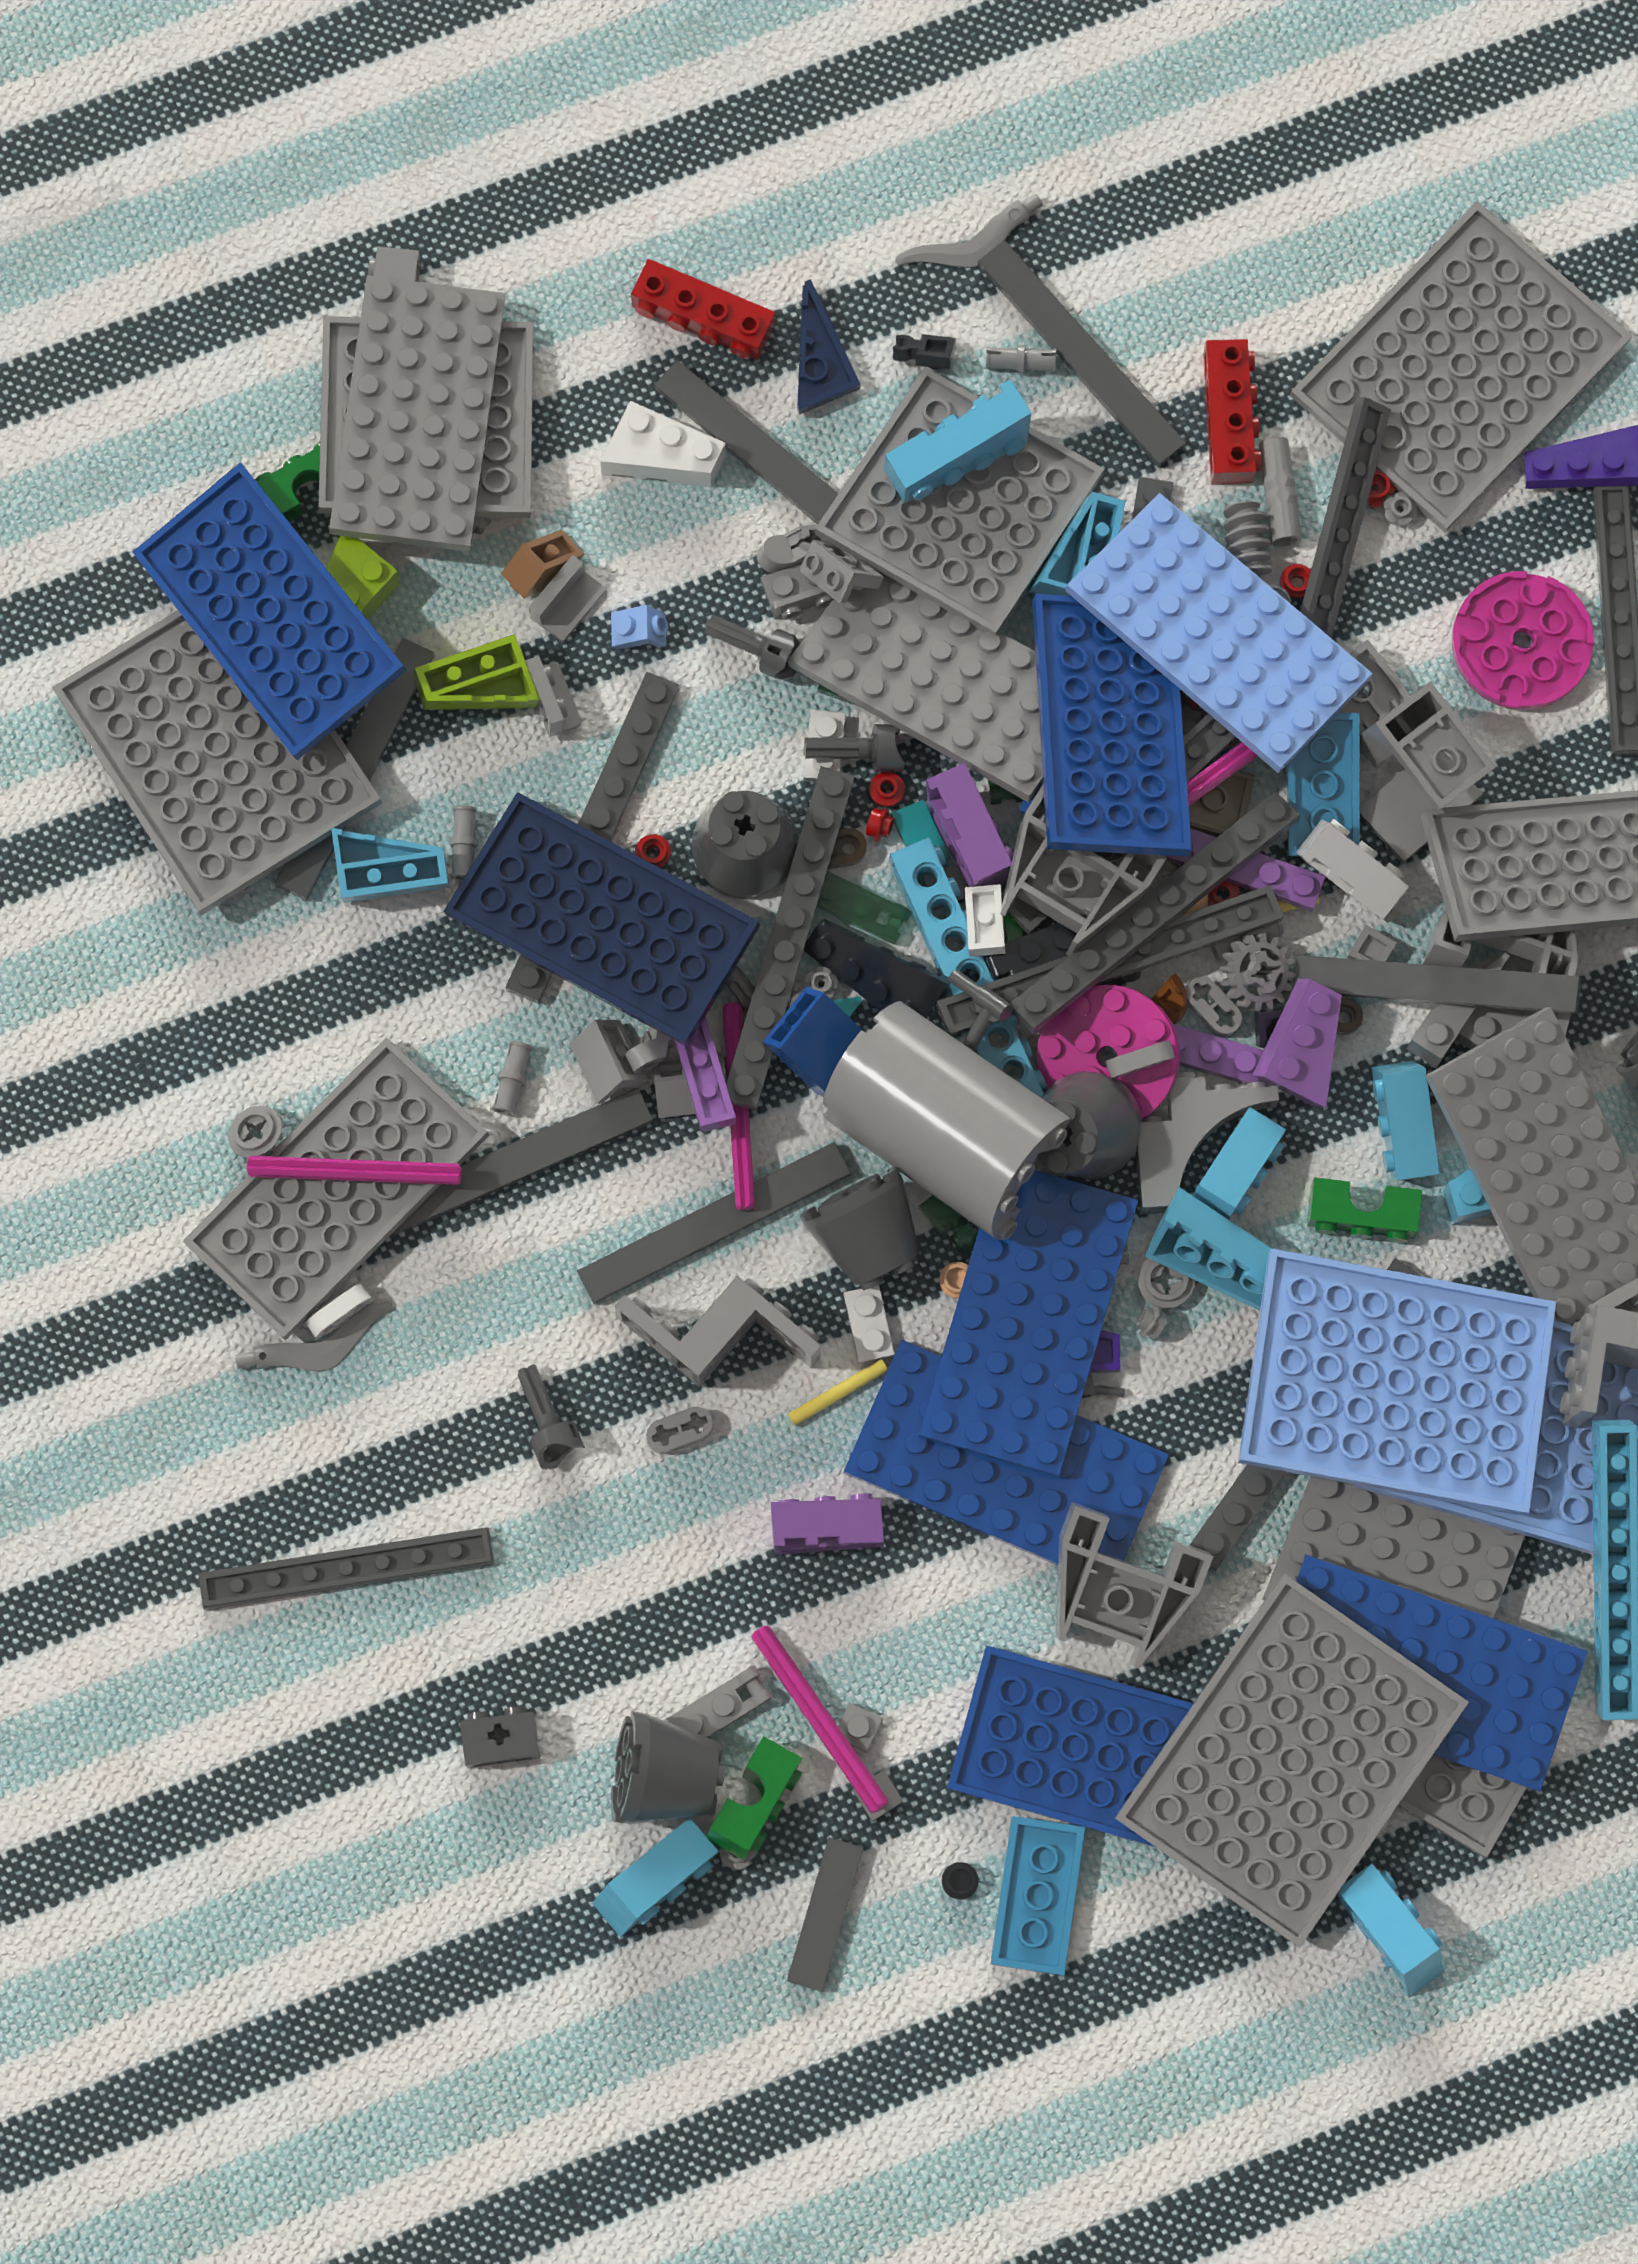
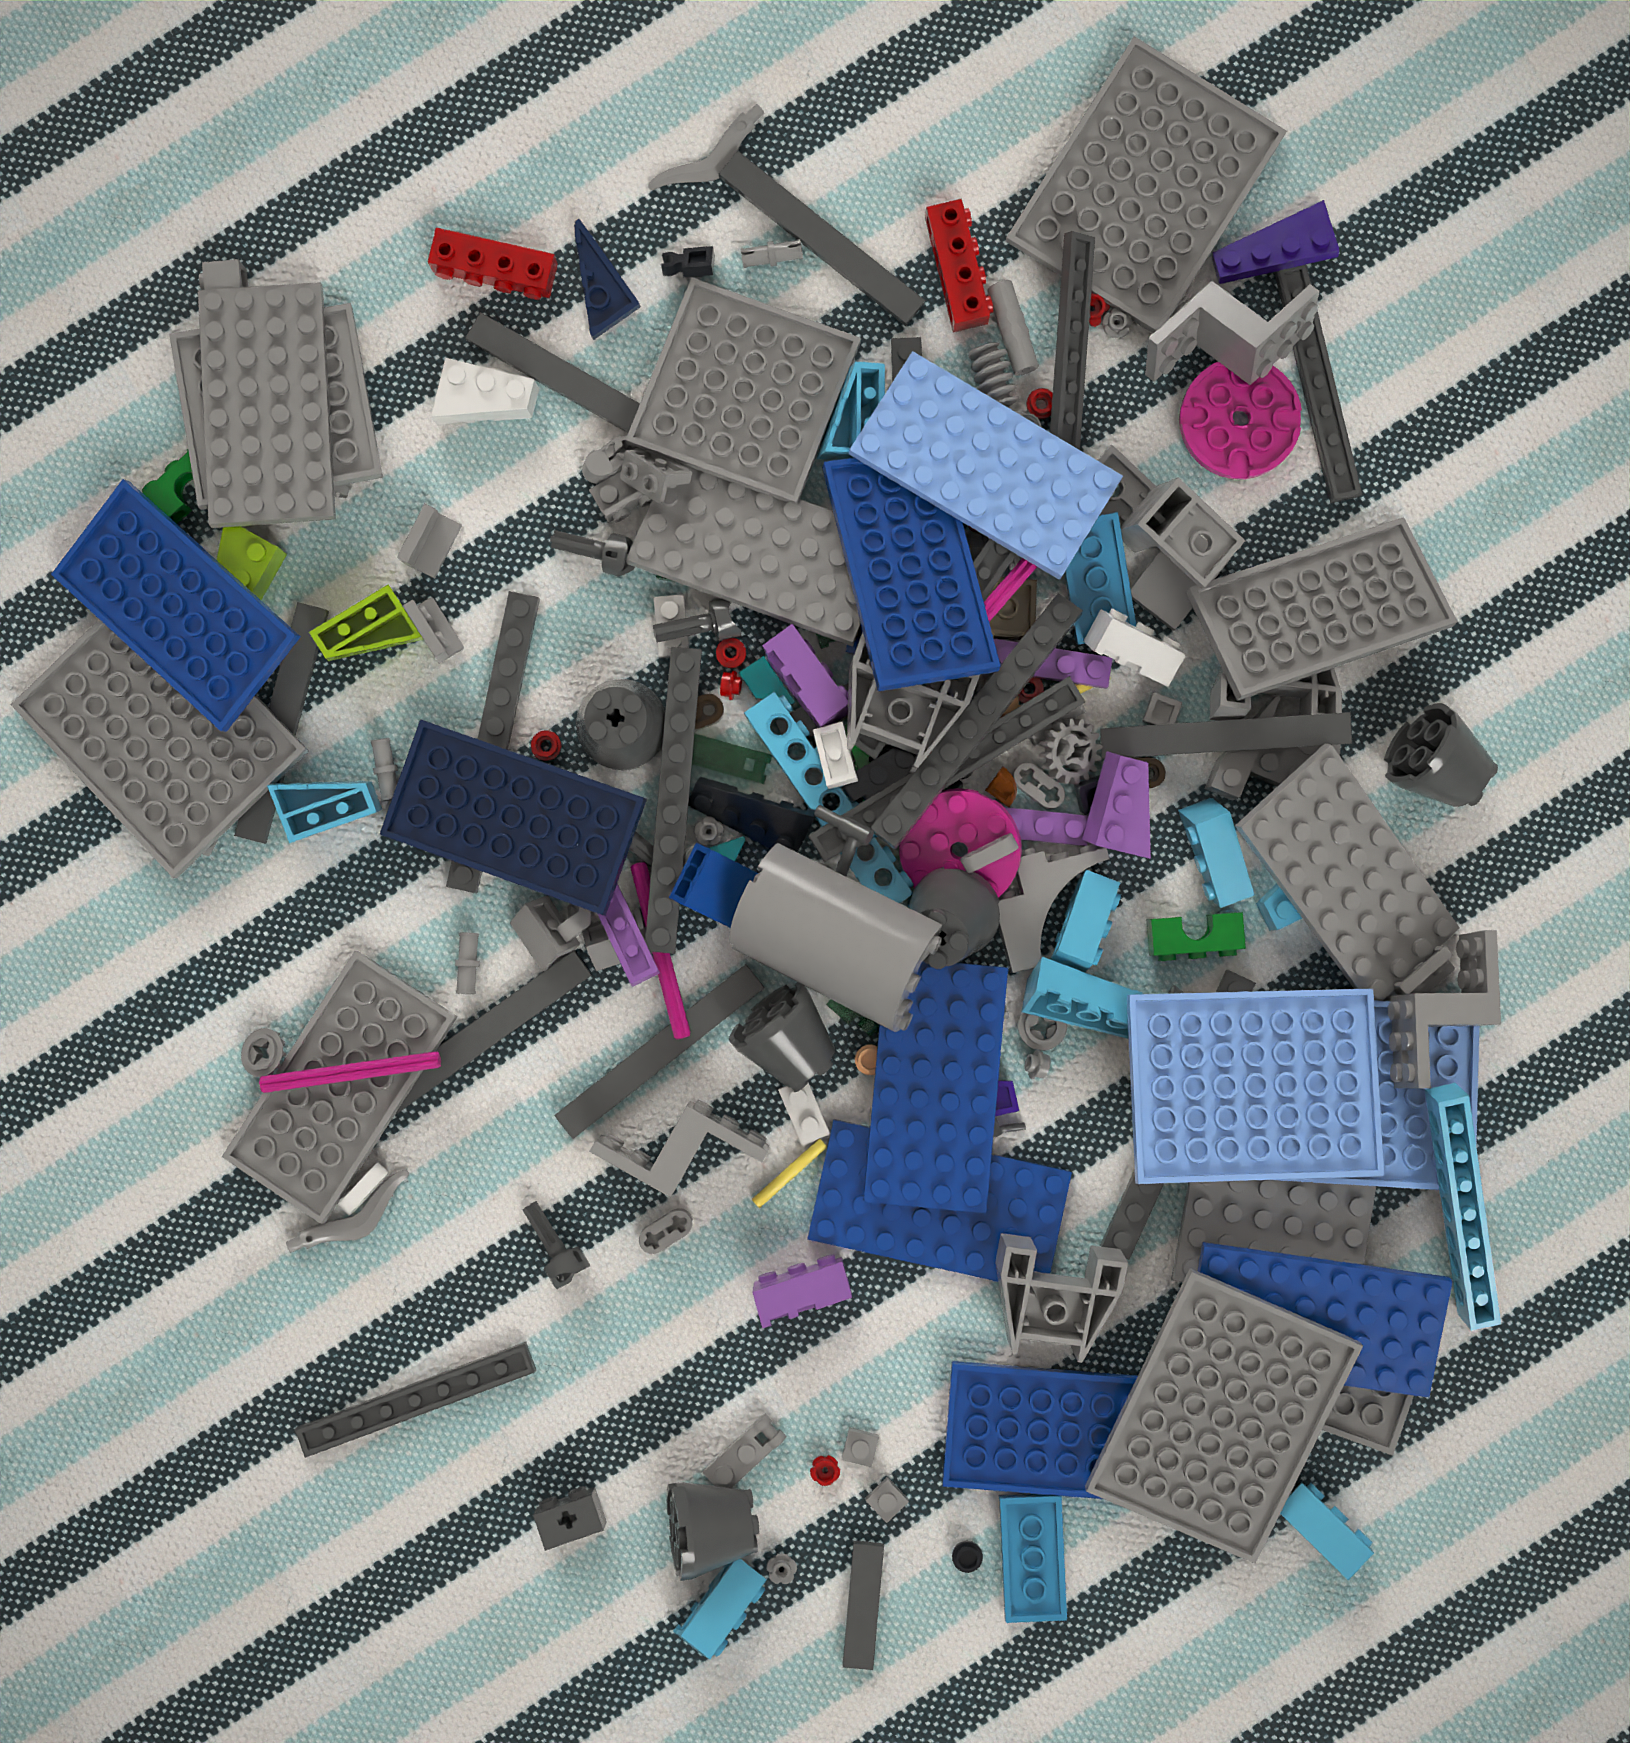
camera: 10 degrees left, 10 degrees up
(539, 562) = (398, 513): medium nougat slope -> none
(638, 627) = (495, 554): light blue bracket -> none
(740, 1826) = (782, 1557): green arch -> none
(801, 1748) = (825, 1478): none -> red plate
(819, 1719) = (828, 1451): dark pink axle -> none
(960, 445) = (734, 342): medium azure wedge -> none
(1525, 542) = (1231, 333): none -> light grey bracket

